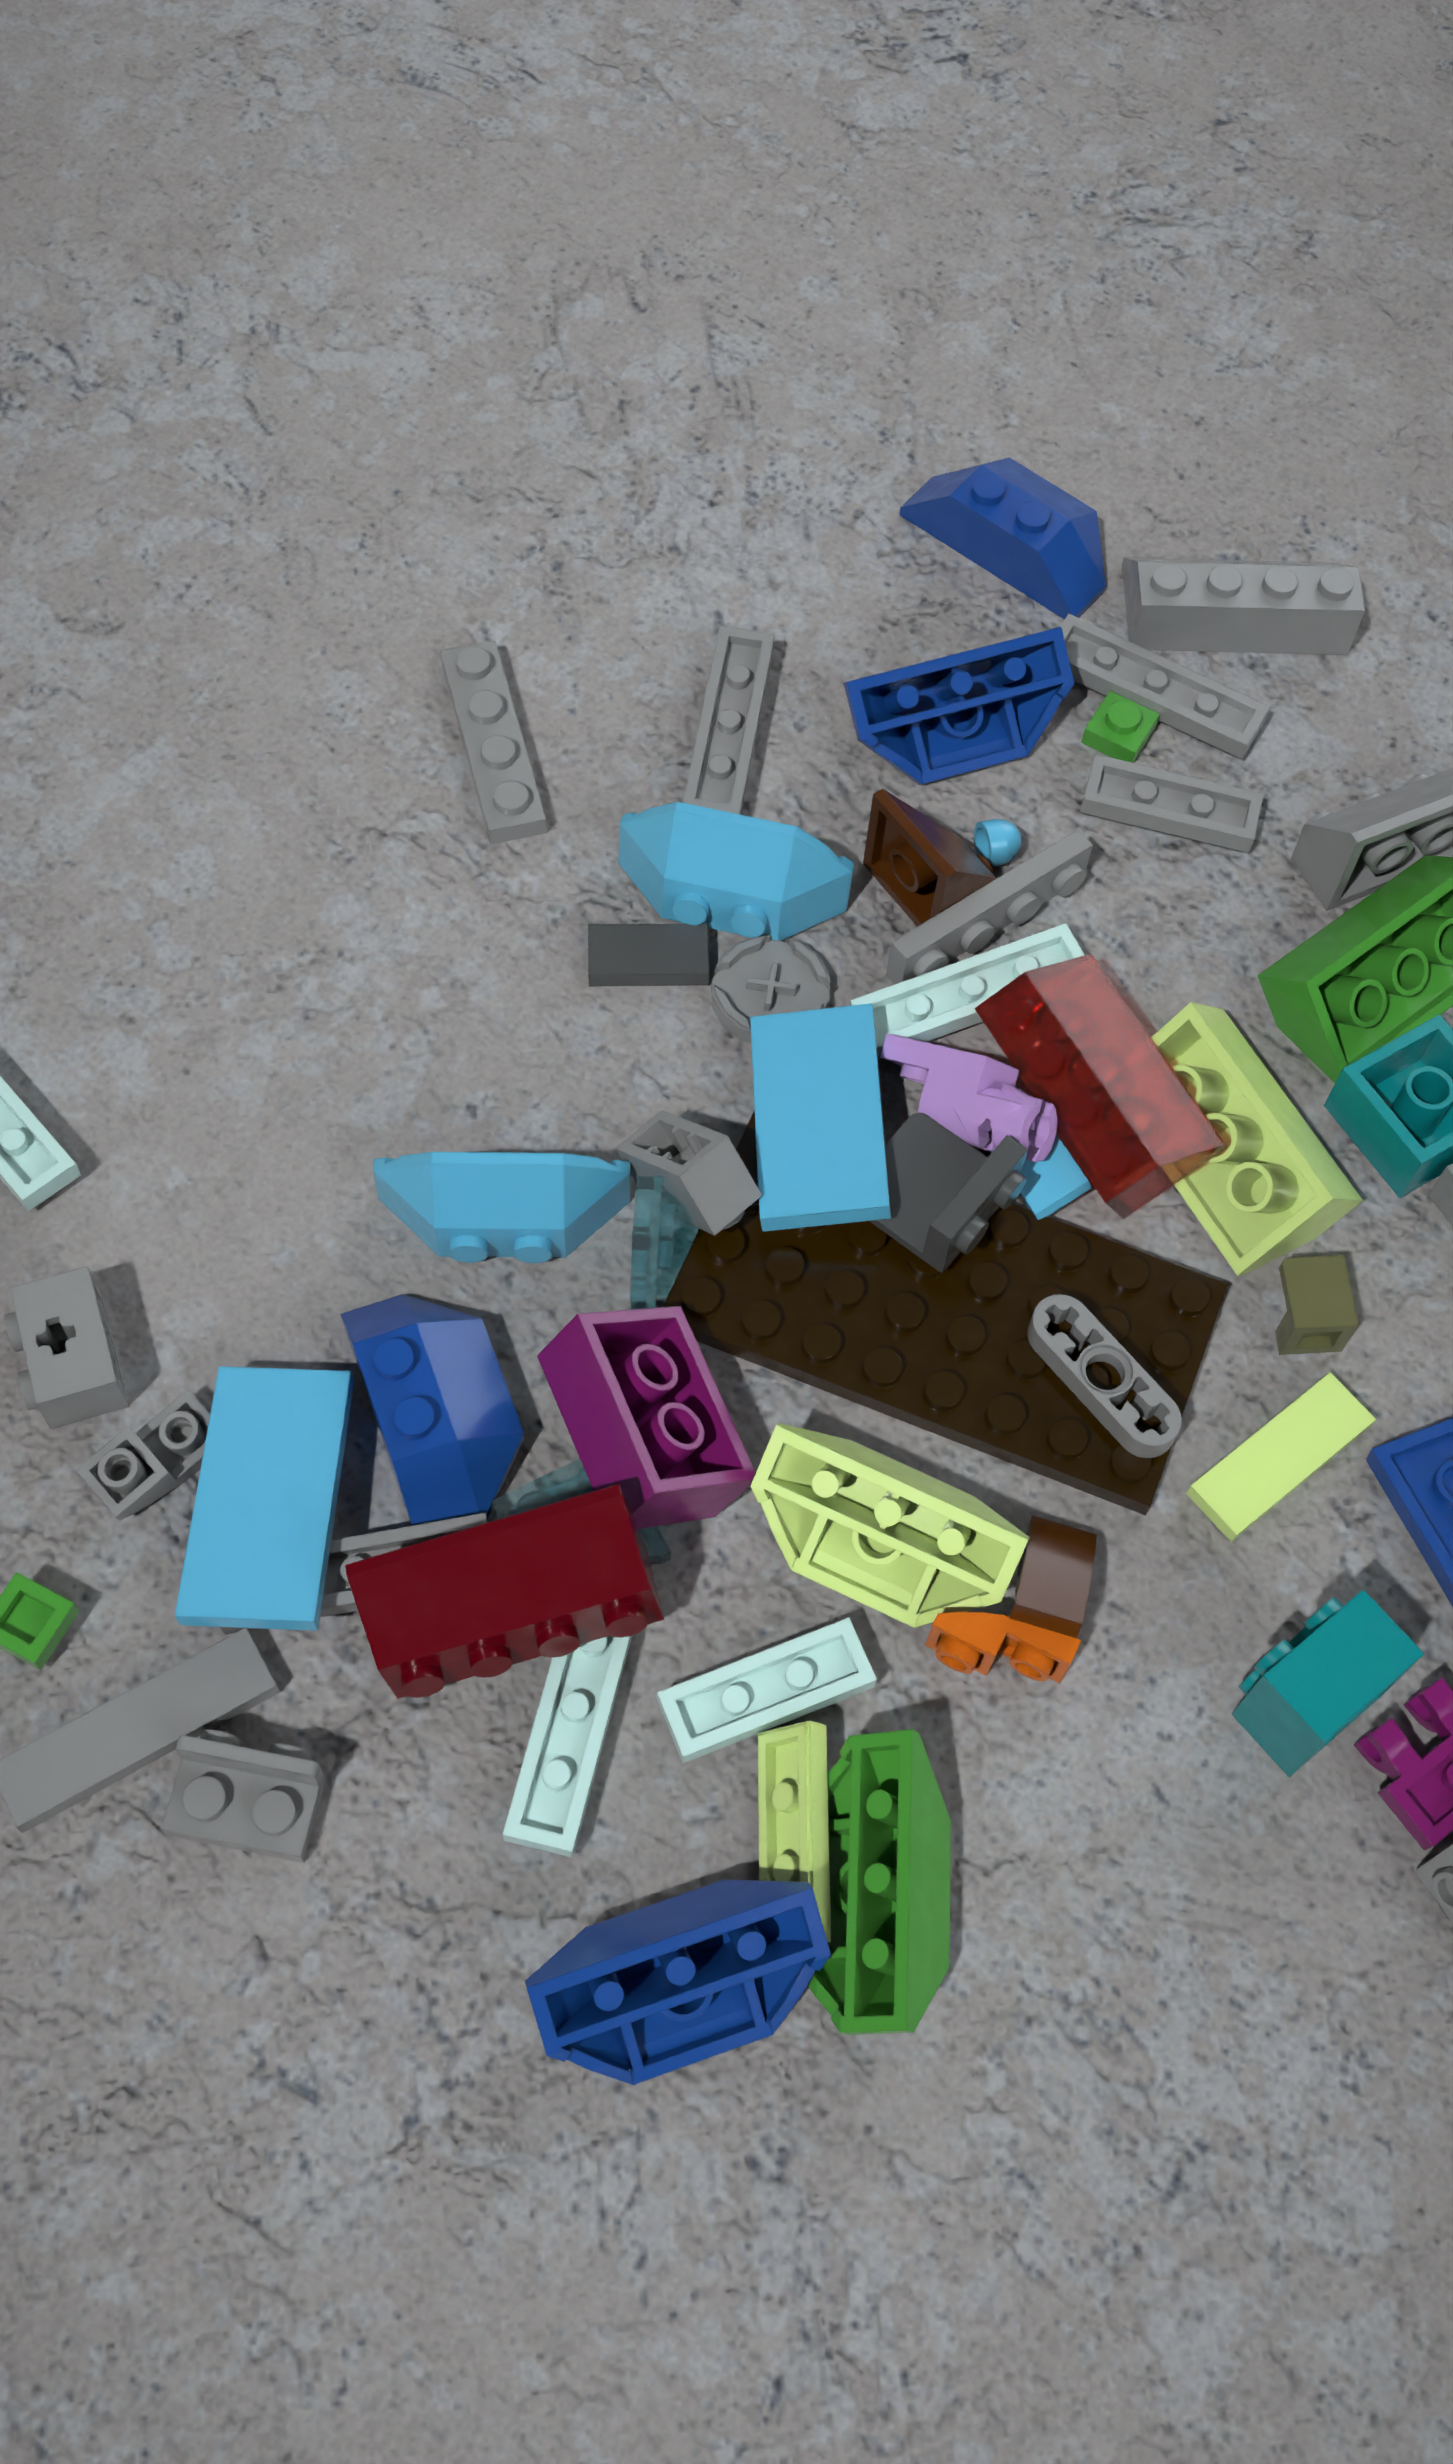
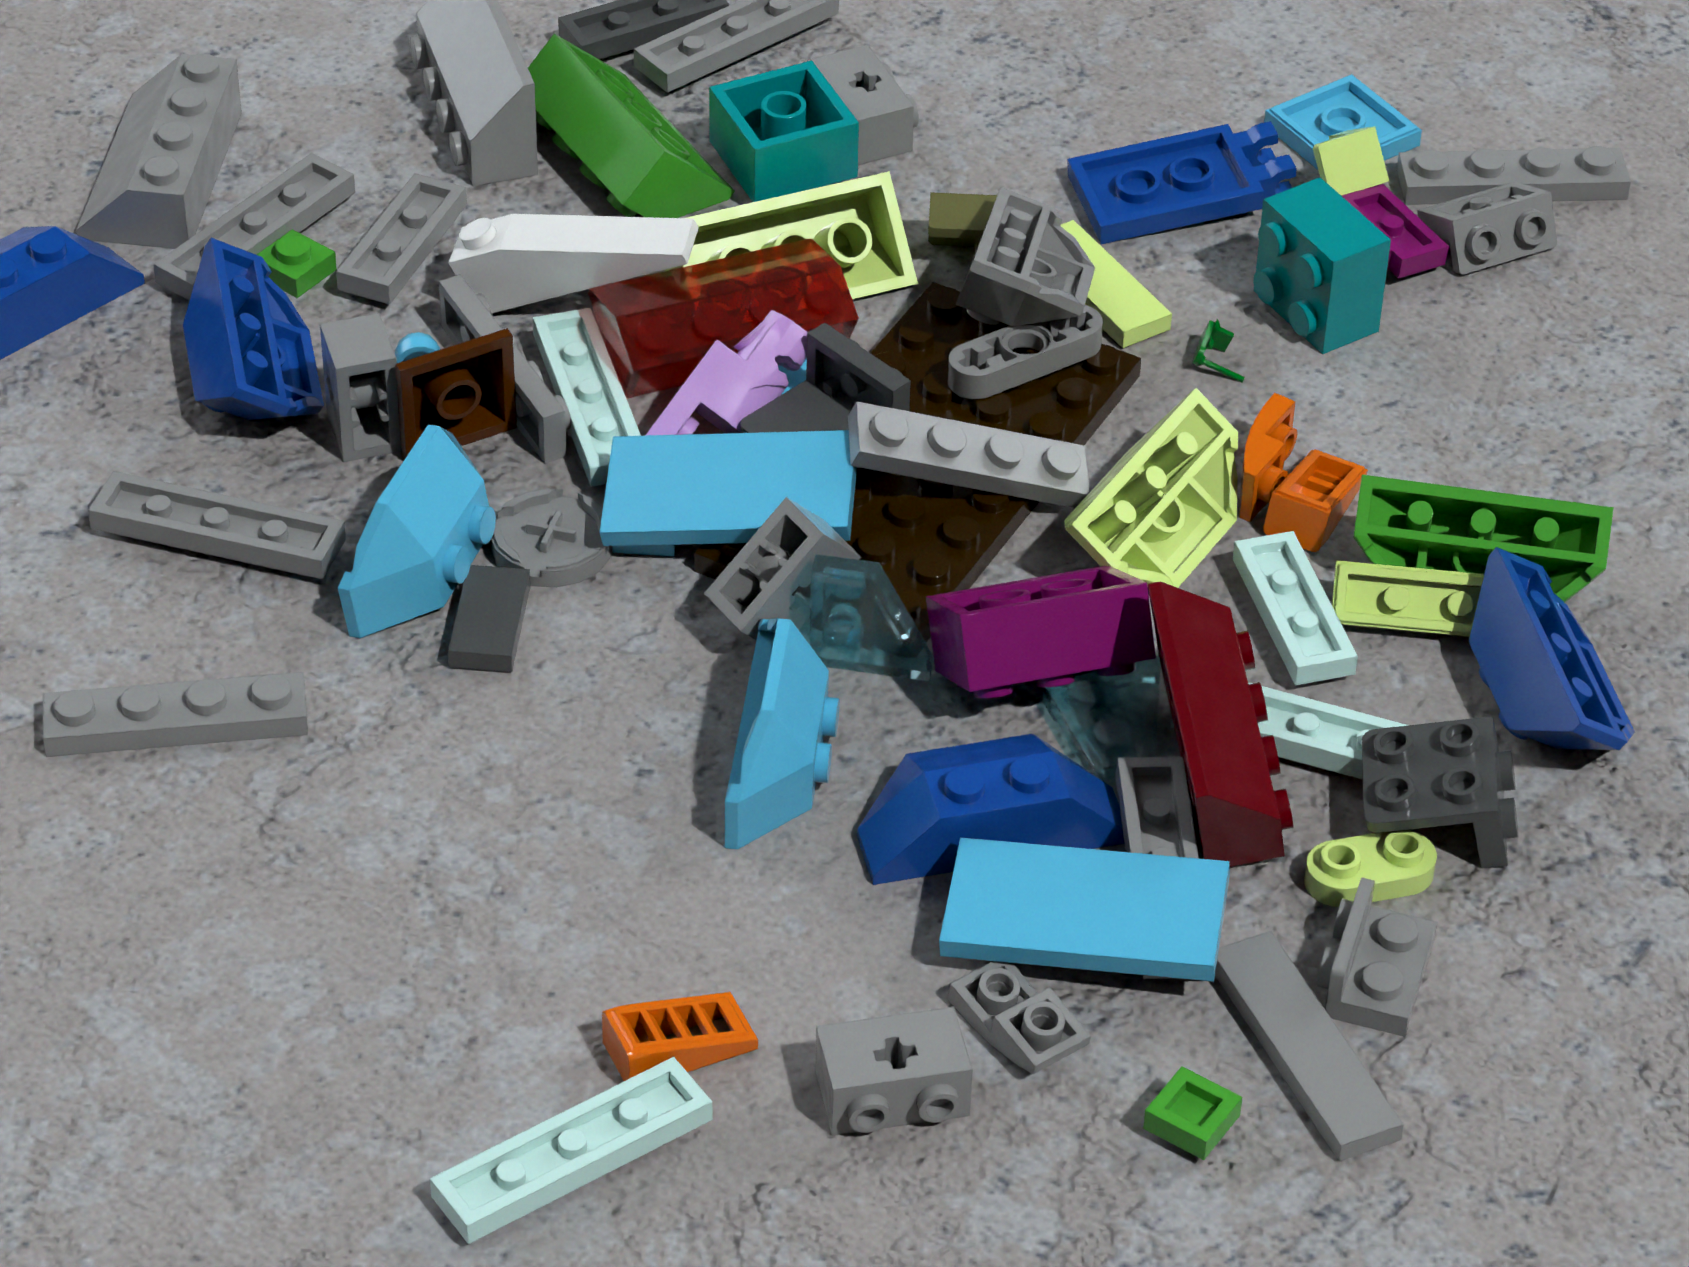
camera: 80 degrees left, 20 degrees down
(103, 1133) = (637, 1033): none -> orange slope
(387, 1786) = (1396, 860): none -> yellowish green plate
(481, 1852) = (1441, 779): none -> dark grey bracket
(900, 1327) = (967, 455): none -> light grey plate
(910, 767) = (360, 386): none -> light grey brick
(929, 1721) = (1313, 498): none -> orange slope
(1054, 1577) = (1236, 397): reddish brown slope -> none
(1150, 925) = (548, 256): none -> white wedge
(1214, 1351) = (1025, 266): none -> light grey wedge
(1215, 1580) = (1218, 338): none -> green piece

